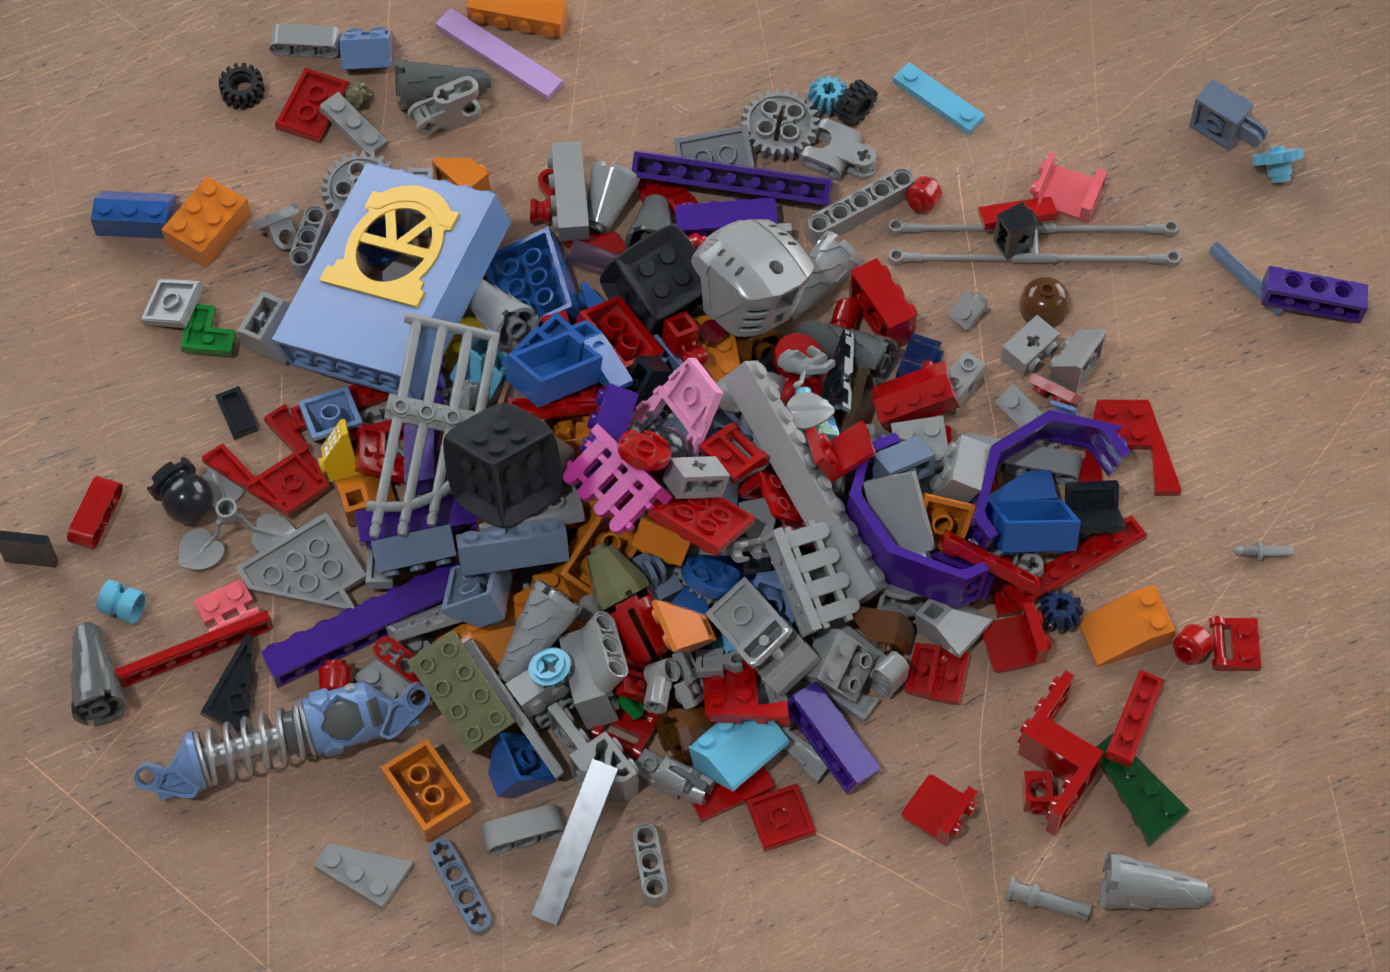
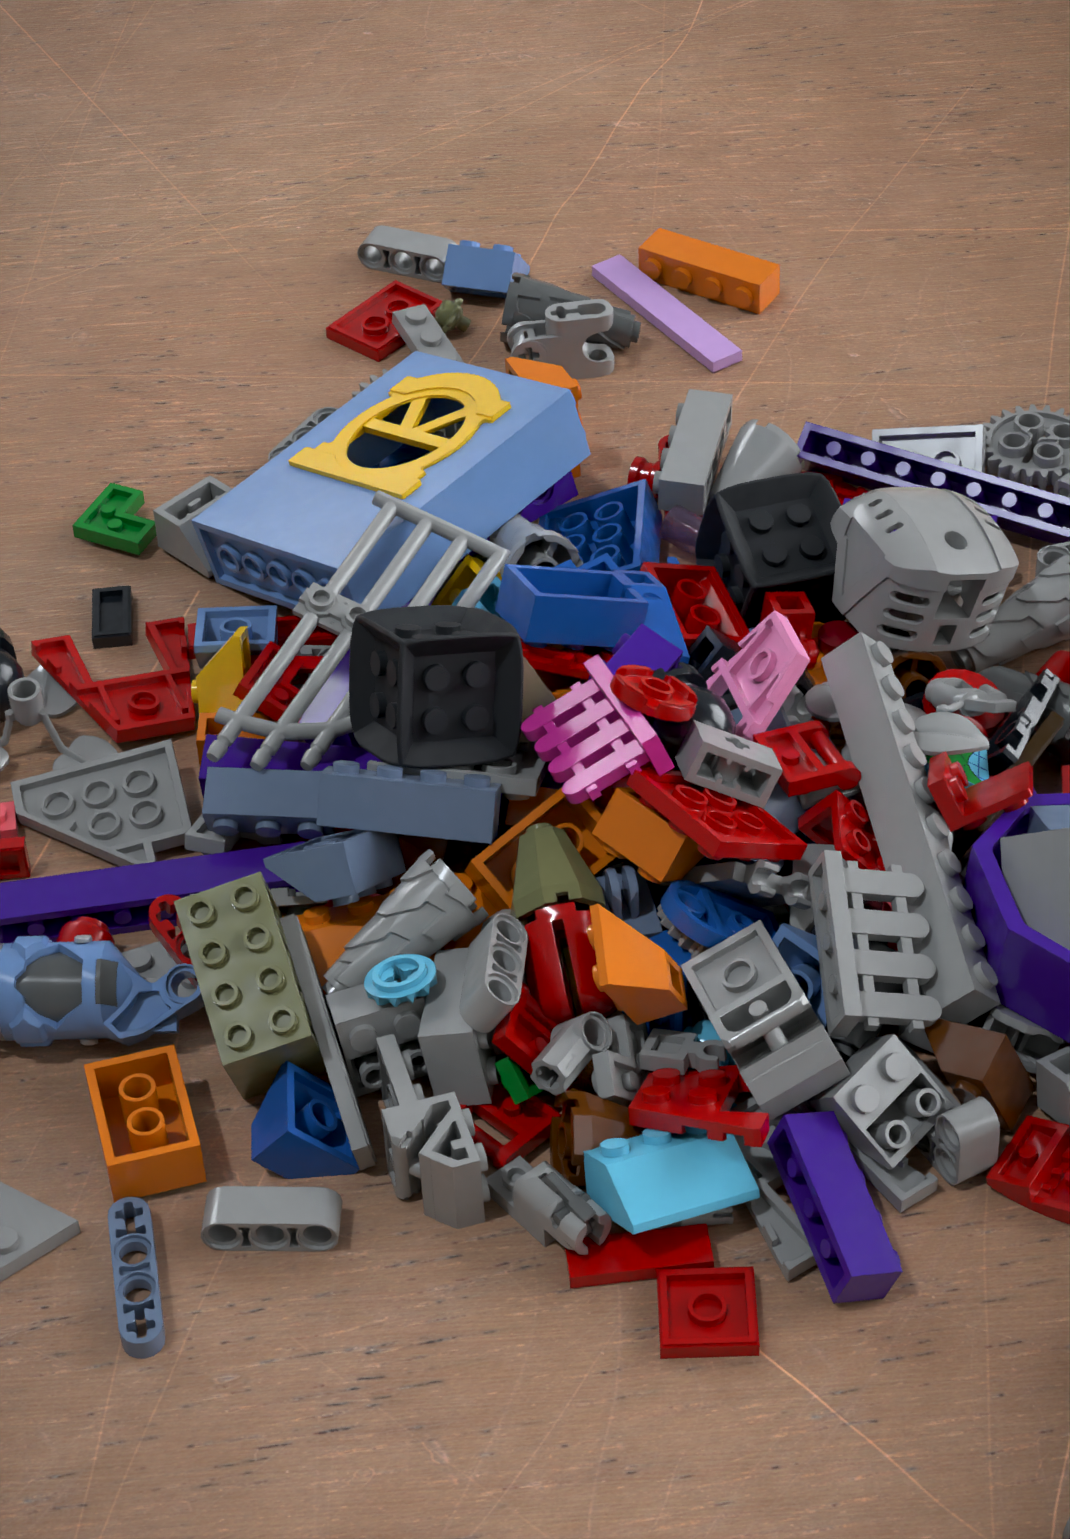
camera: 20 degrees right, 20 degrees down
(132, 214) = (88, 383): blue slope -> none
(172, 303) = (88, 478): light grey tile -> none
(206, 222) = (179, 404): orange brick -> none
(238, 75) = (301, 283): black tyre -> none
(277, 222) = (273, 414): light grey tile -> none
(575, 842) = (340, 1244): tile -> none
(650, 852) = (456, 1321): light grey beam -> none
(754, 565) = (784, 913): black tile -> none
(940, 809) = (991, 1365): red bracket -> none

